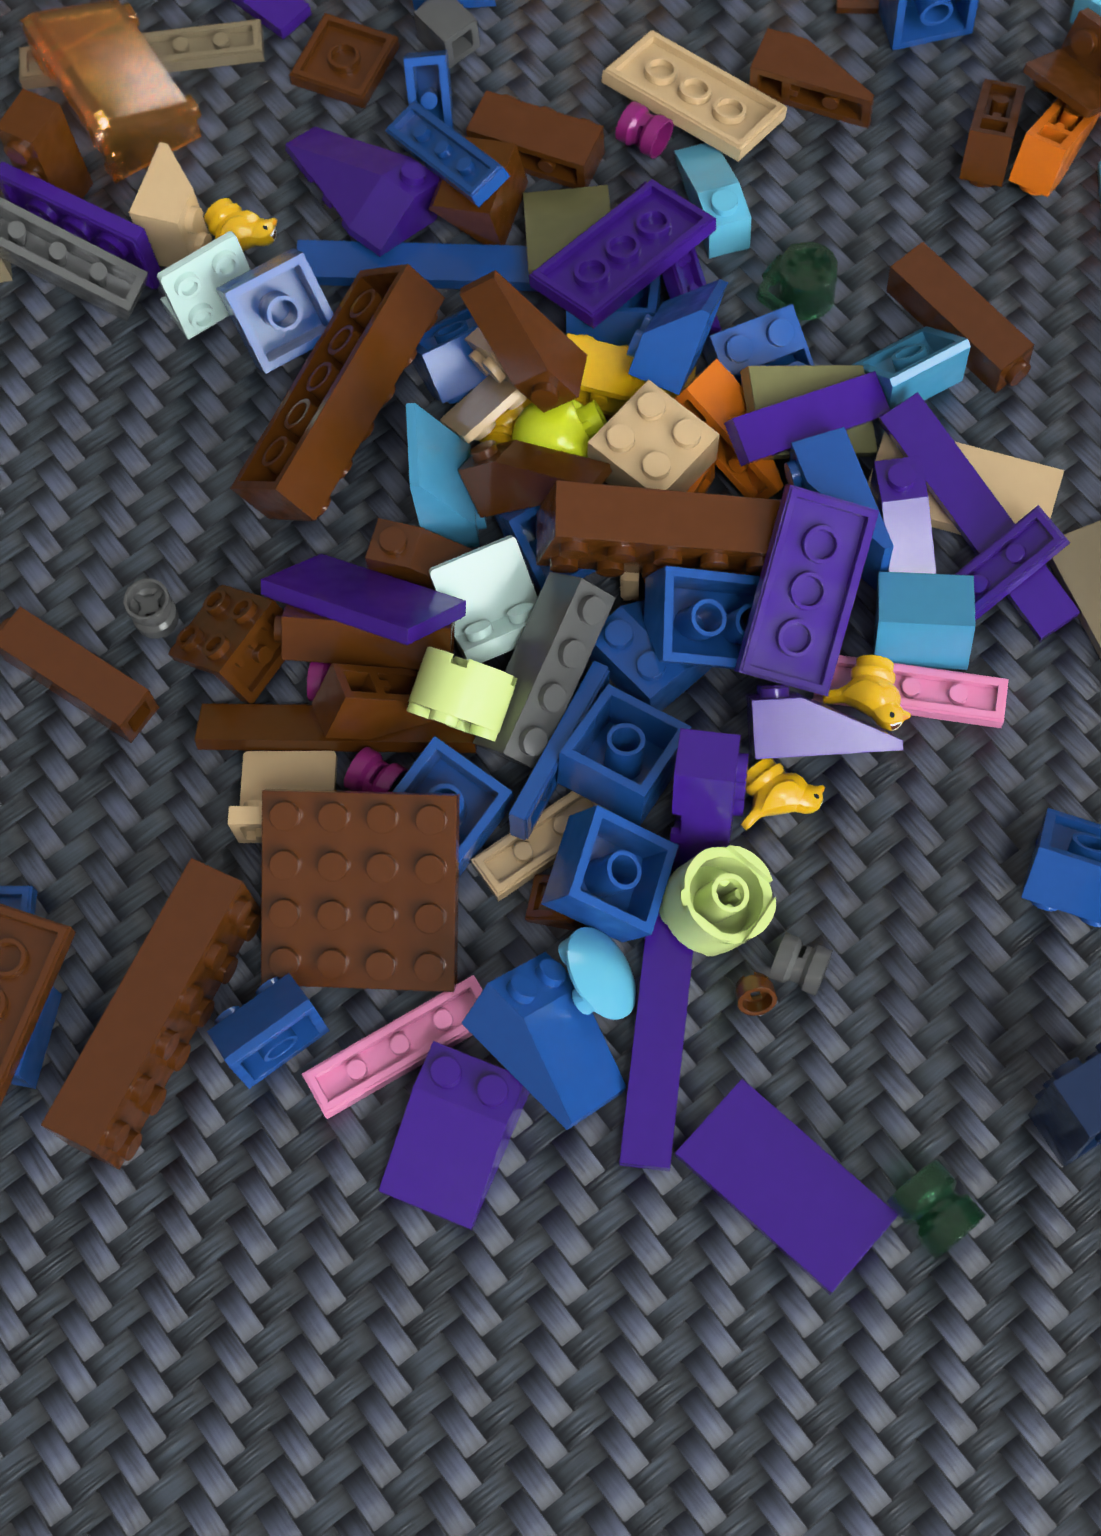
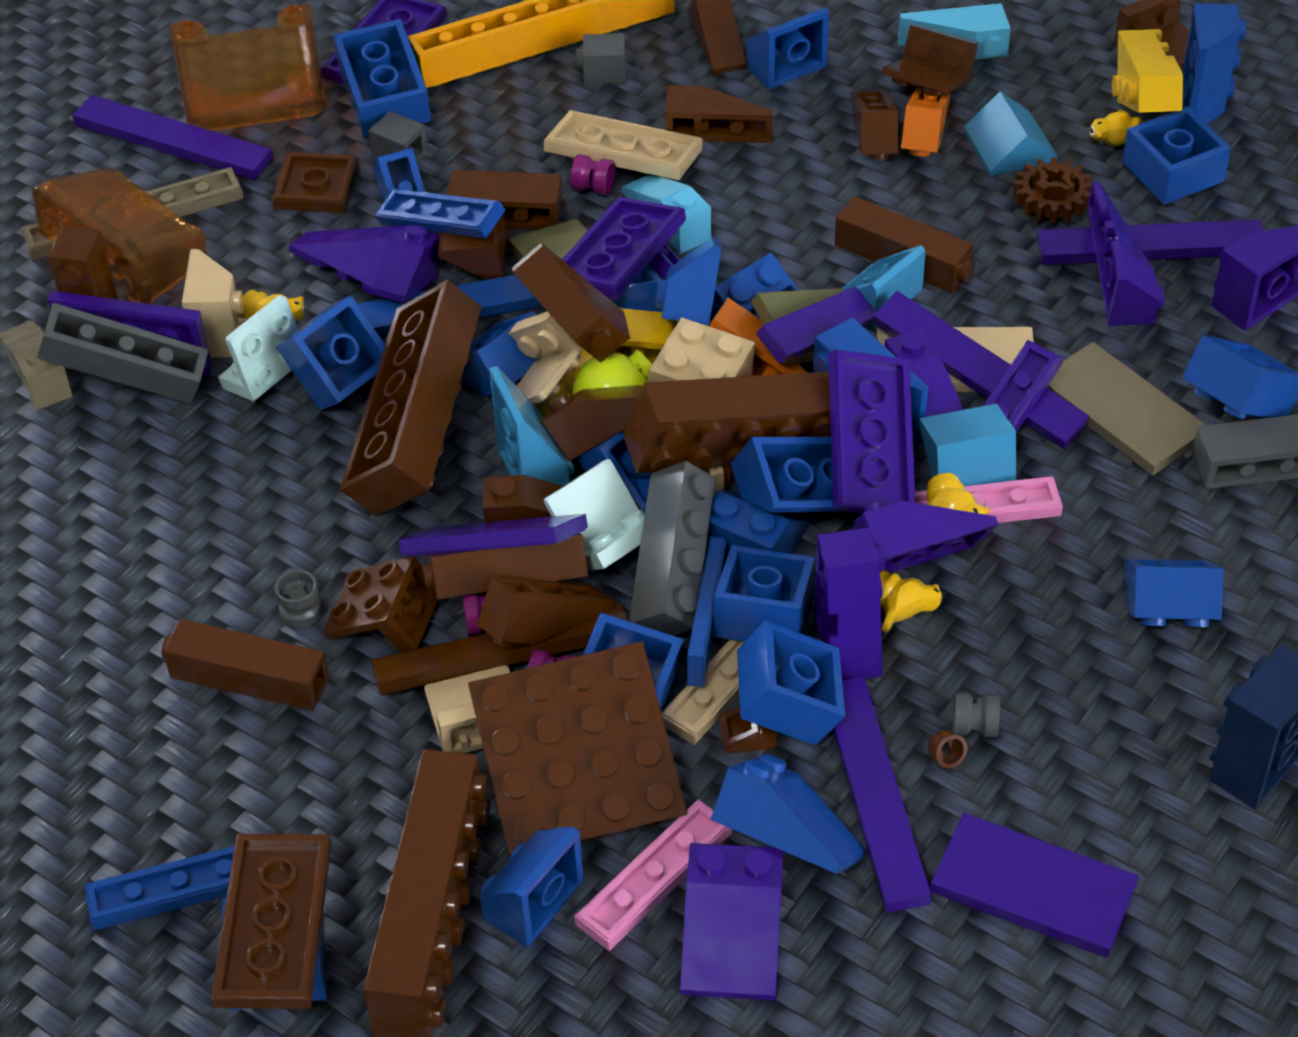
camera: 25 degrees left, 20 degrees down
(461, 693) = (612, 573): yellowish green brick -> none
(598, 973) = (815, 763): medium azure dish -> none
(718, 900) = (890, 678): yellowish green brick -> none
(806, 280) = (764, 235): clear green piece -> none
(936, 1208) = (1154, 848): clear green wheel -> none

